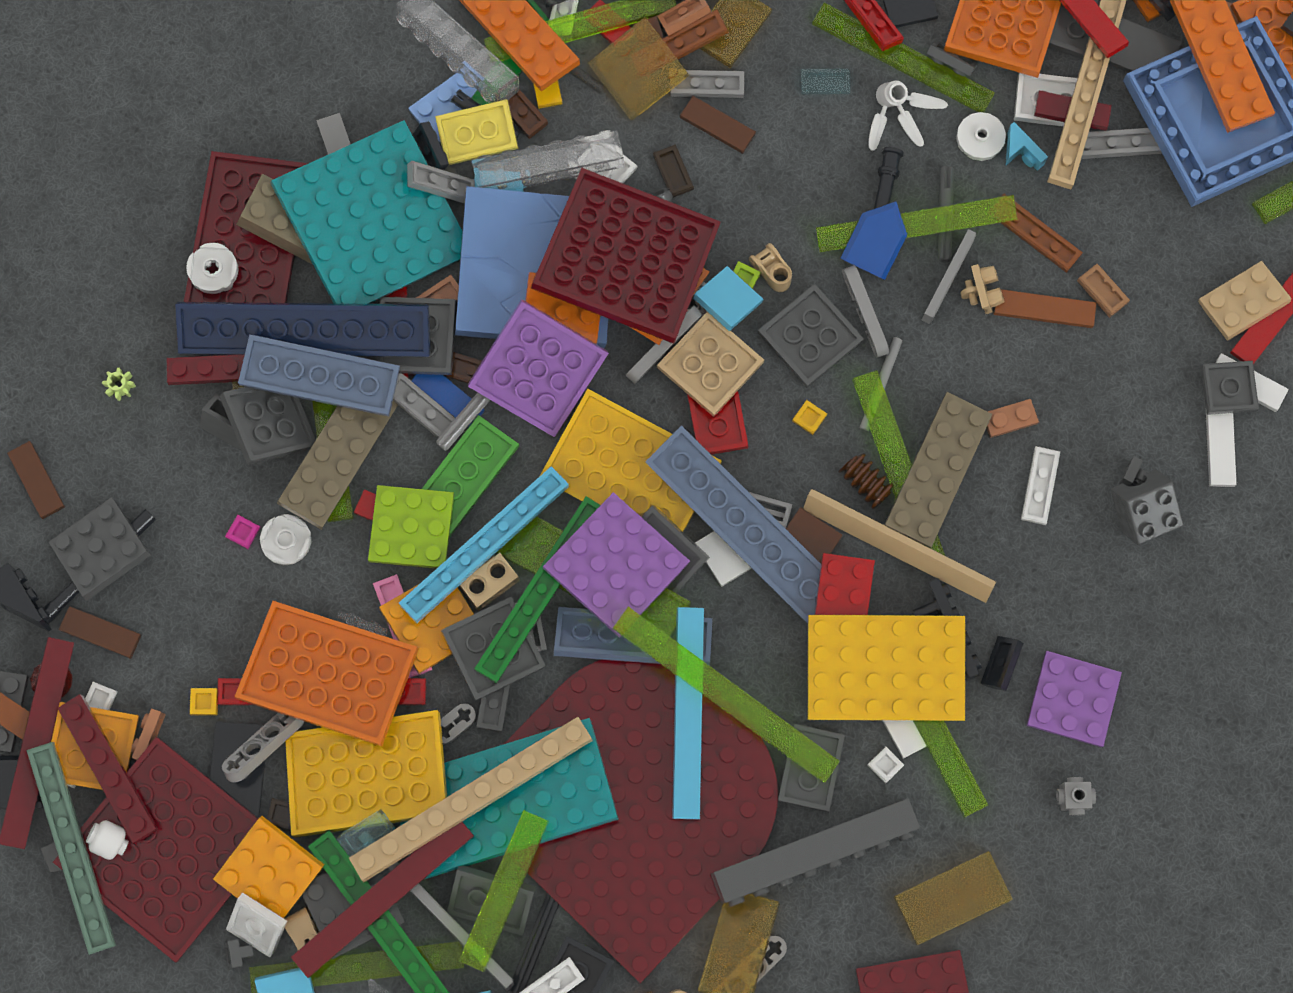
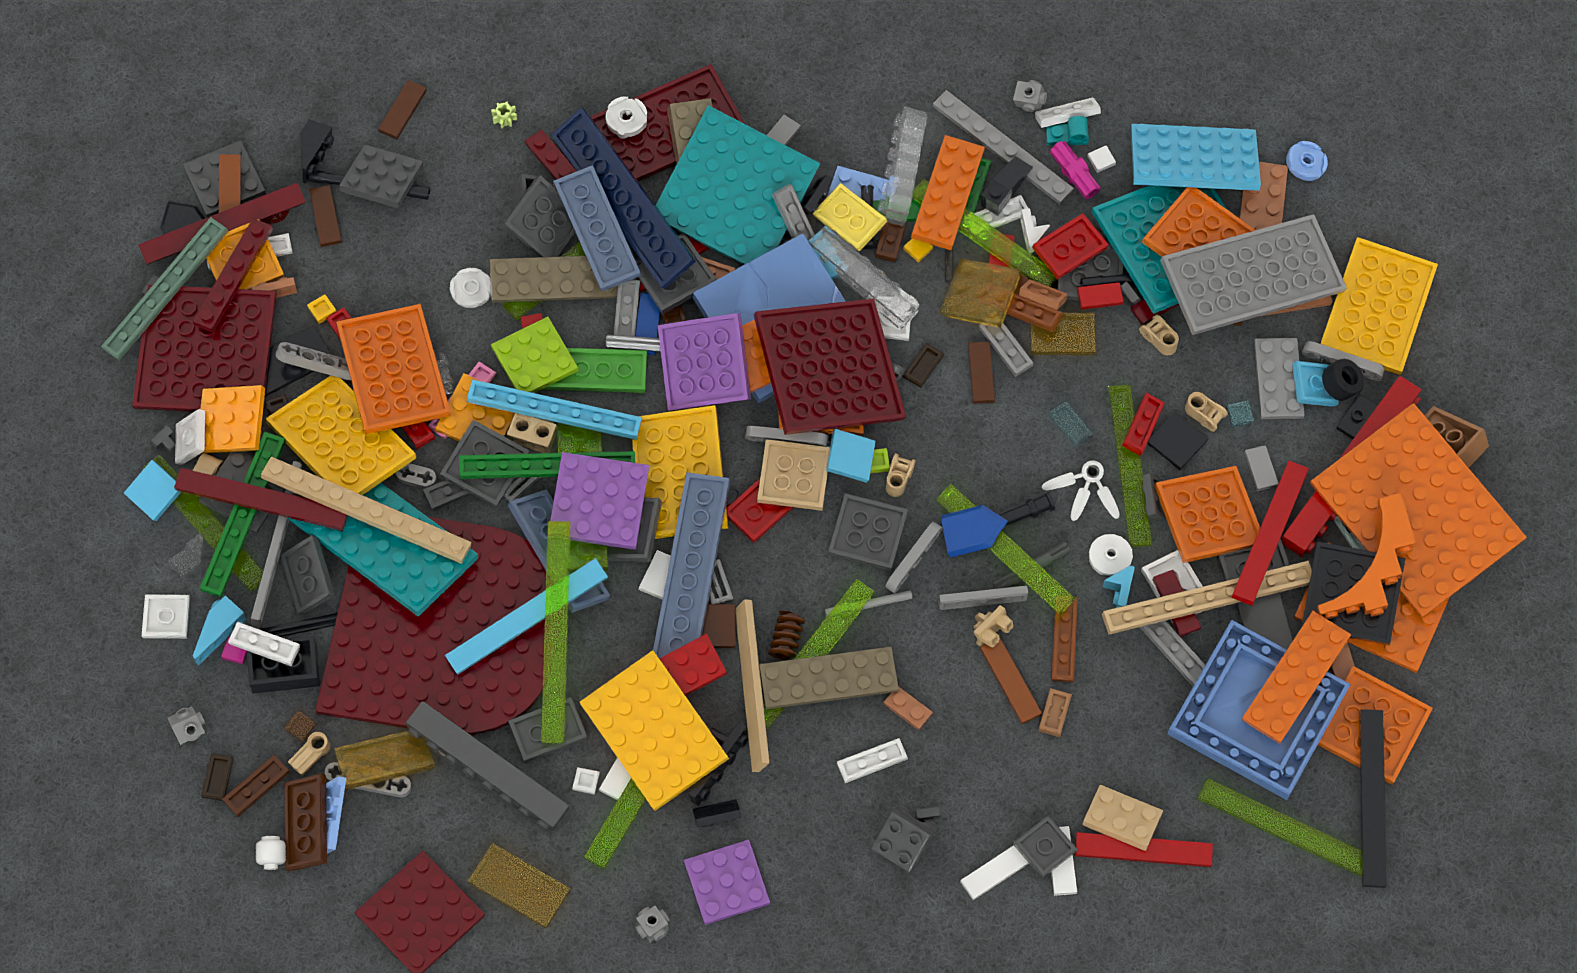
camera: 55 degrees right, 10 degrees down
(107, 840) = (184, 305): white head -> none
(242, 532) = (457, 258): dark pink tile -> none
(365, 833) = (298, 459): clear light blue tile -> none
(503, 891) = (316, 570): clear neon green plate -> none
(809, 417) = (806, 570): yellow tile -> none

